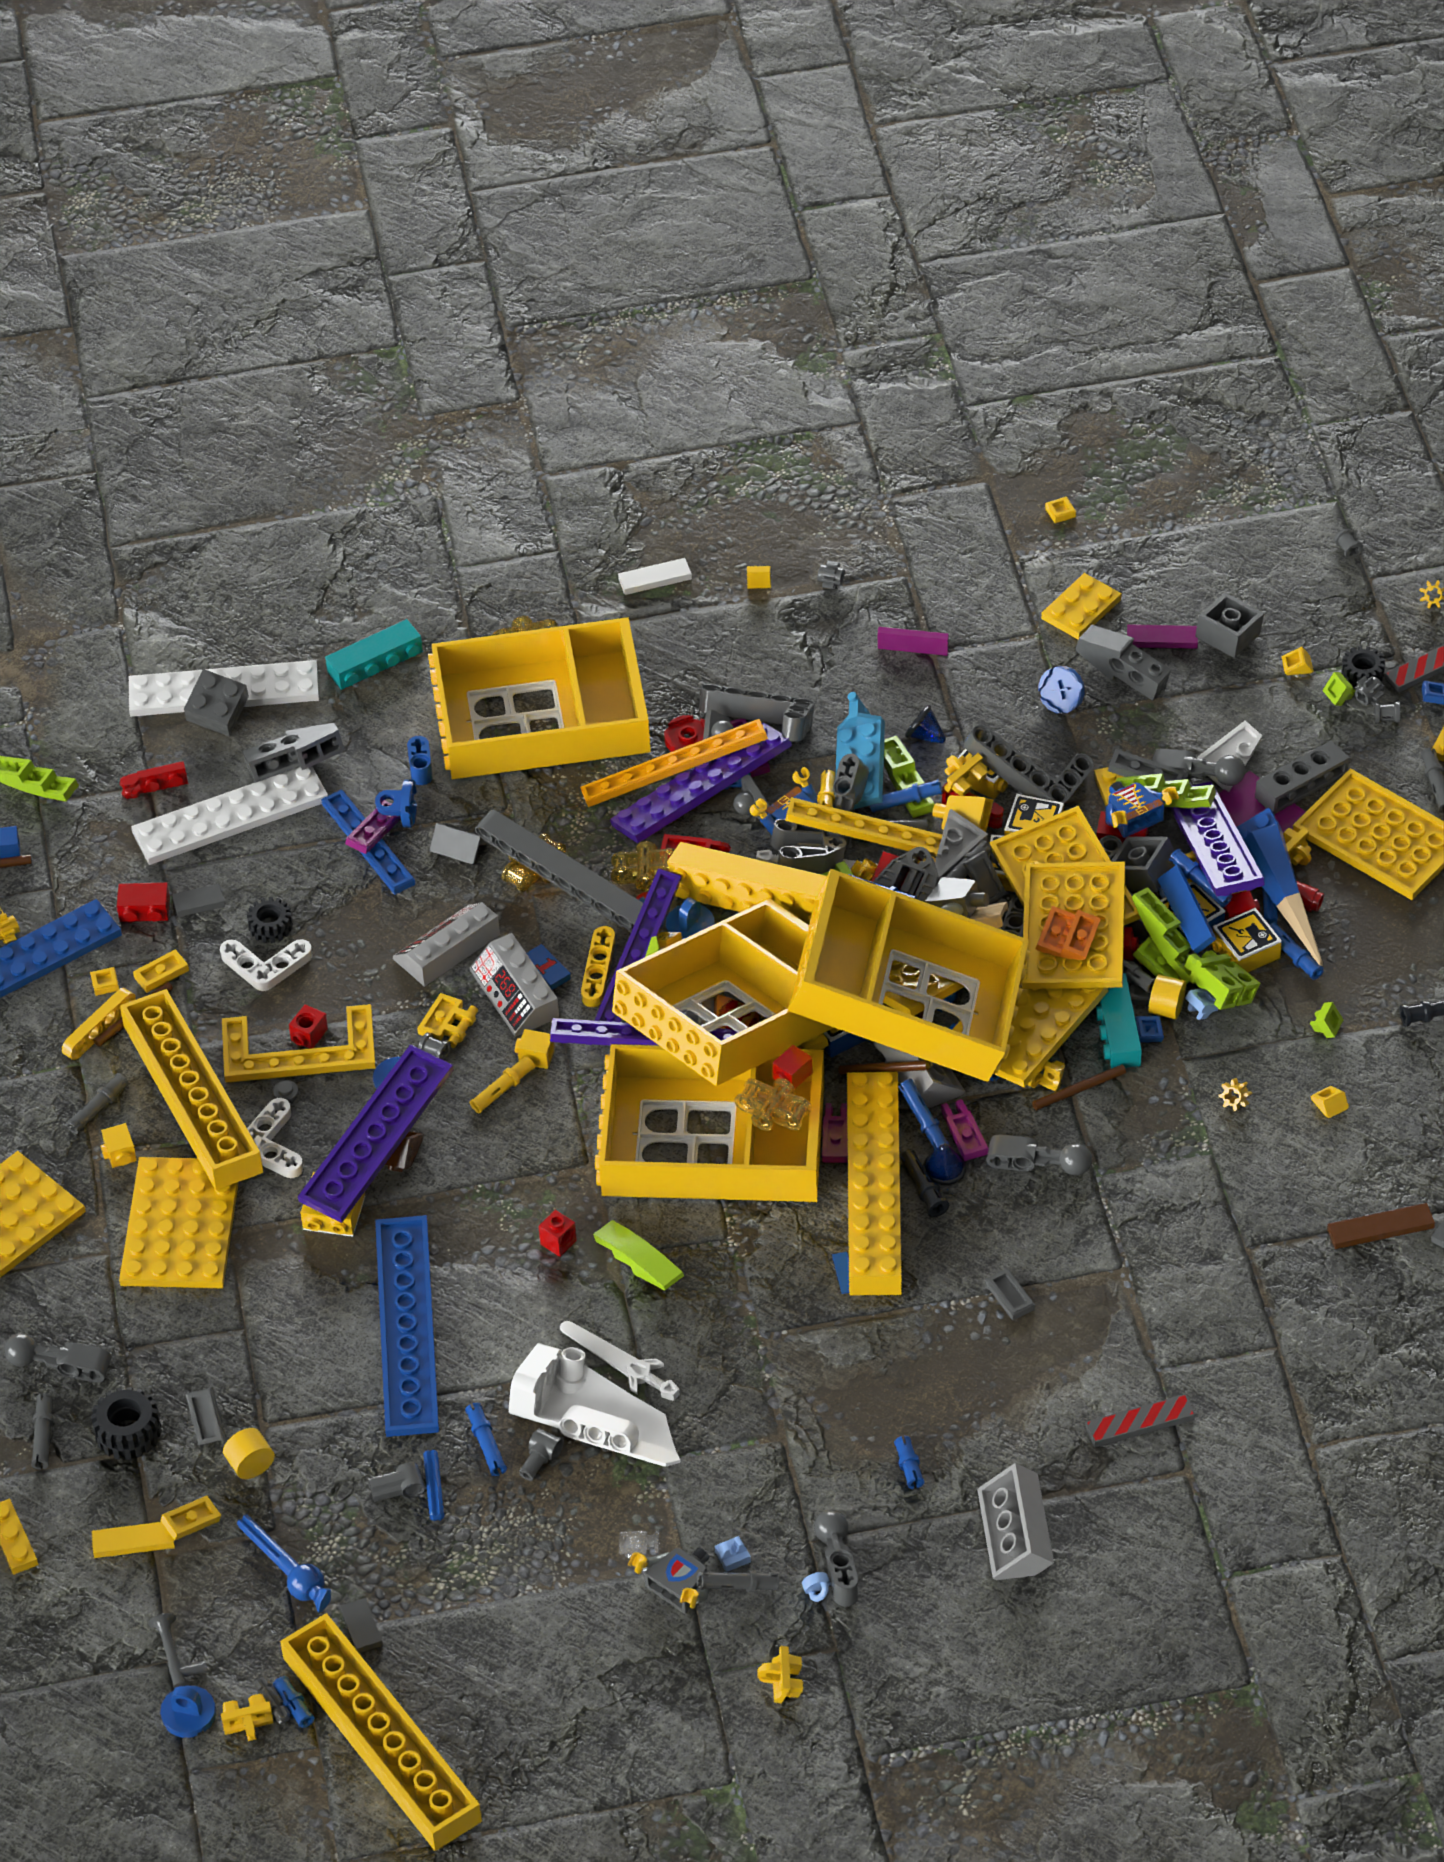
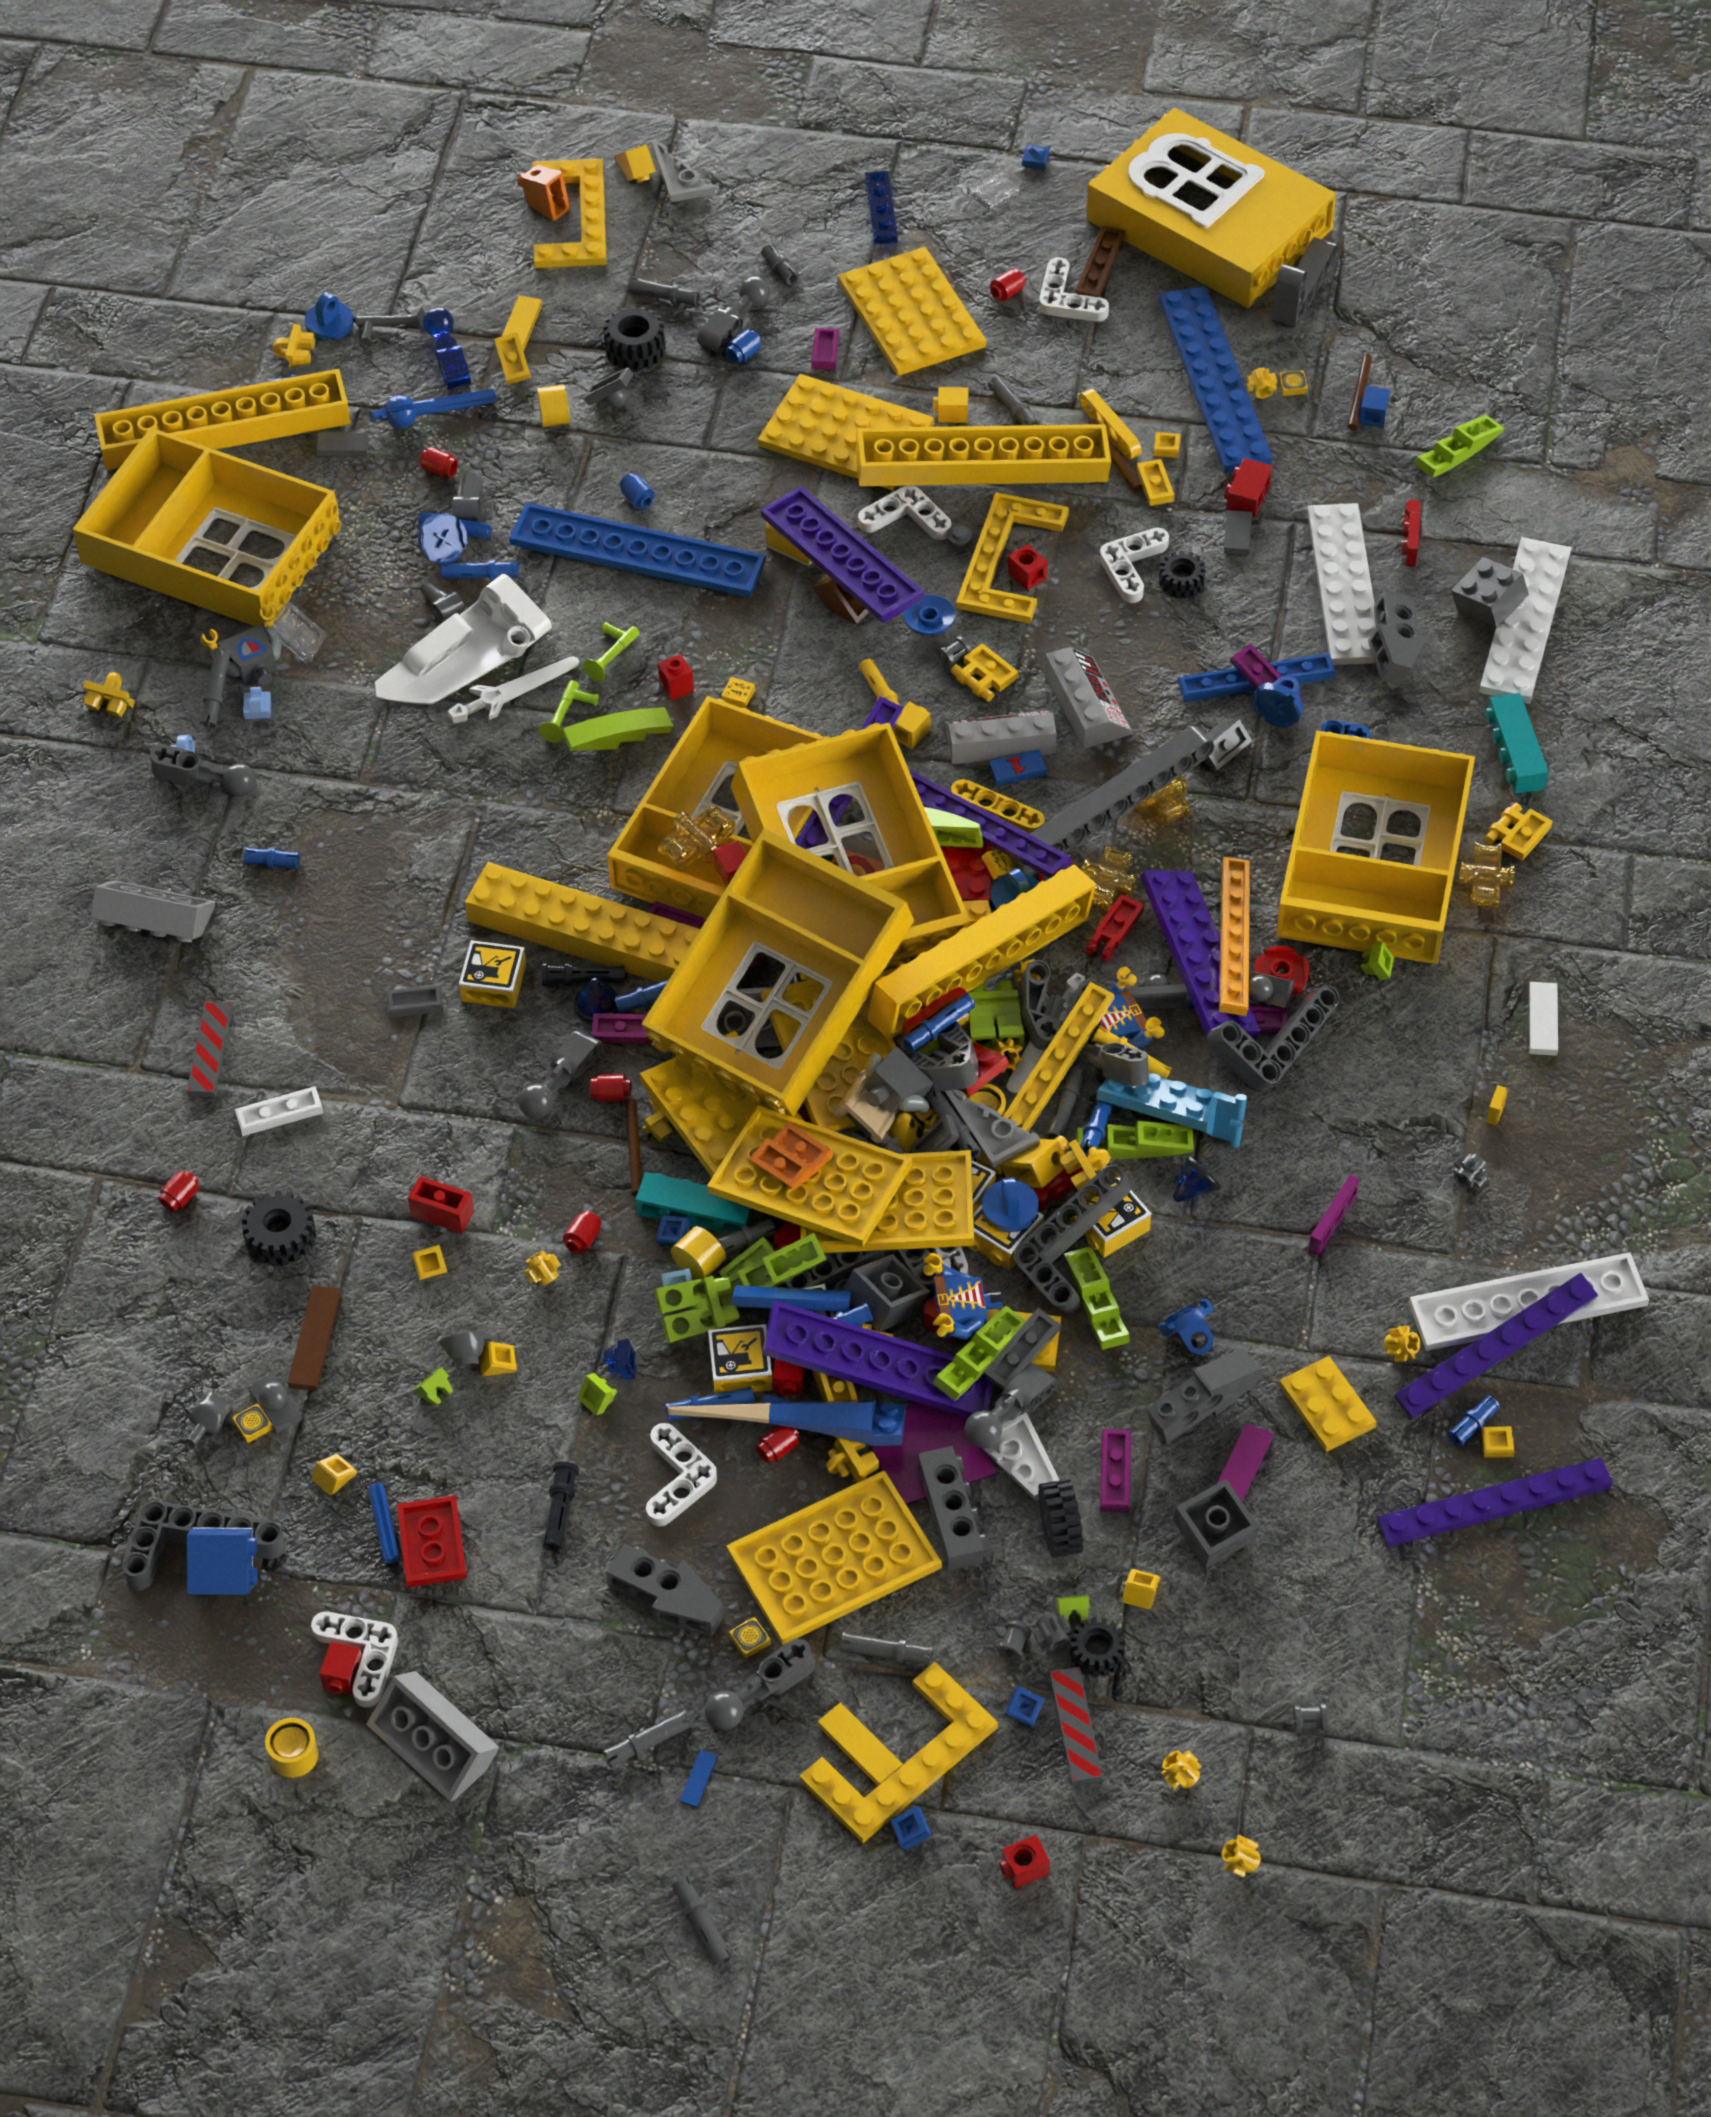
camera: 110 degrees right, 5 degrees up
(71, 1276) = (825, 348): none -> magenta tile
(99, 1335) = (743, 346): none -> blue brick
(207, 1574) = (439, 323): none -> clear blue beam
(332, 1350) = (636, 491): none -> blue brick
(359, 1525) = (438, 463): none -> red brick
(466, 1477) = (442, 538): none -> tile
(468, 627) = (1524, 835): none -> yellow plate
(518, 1295) = (596, 668): none -> lime piece
(542, 1729) = (168, 500): none -> yellow panel
(548, 1190) = (738, 692): none -> yellow tile
(608, 1311) = (551, 730): none -> lime piece
(651, 677) = (1379, 961): none -> lime tile
(931, 519) = (1476, 1309): none -> white plate
(957, 1241) = (492, 974): none -> piece
(984, 521) = (1495, 1346): none -> dark purple plate
(1011, 572) = (1402, 1343): none -> yellow gear
(1022, 809) = (1010, 1205): none -> blue tile
(1032, 1118) = (610, 1088): none -> red brick
(1051, 523) = (1473, 1421): none -> blue pin
(1057, 757) = (1096, 1297): none -> lime slope
(1113, 499) = (1494, 1502): none -> dark purple plate
(1176, 1344) = (279, 1111): none -> white tile
(1184, 1084) = (582, 1232): none -> red brick
(1208, 704) = (1115, 1470): none -> magenta tile
(1215, 1179) = (440, 1204): none -> red brick
(1264, 1181) = (429, 1262): none -> yellow slope
(1281, 702) = (1060, 1518): none -> black tyre
(1288, 1015) = (621, 1359): none -> clear blue tile
(1296, 1302) = (283, 1244): none -> black tyre
(1299, 1374) = (178, 1191): none -> red brick
(1335, 1115) = (465, 1348): none -> dark grey piece
(1360, 944) = (688, 1475): none -> white beam
(1381, 1126) = (434, 1381): none -> lime tile

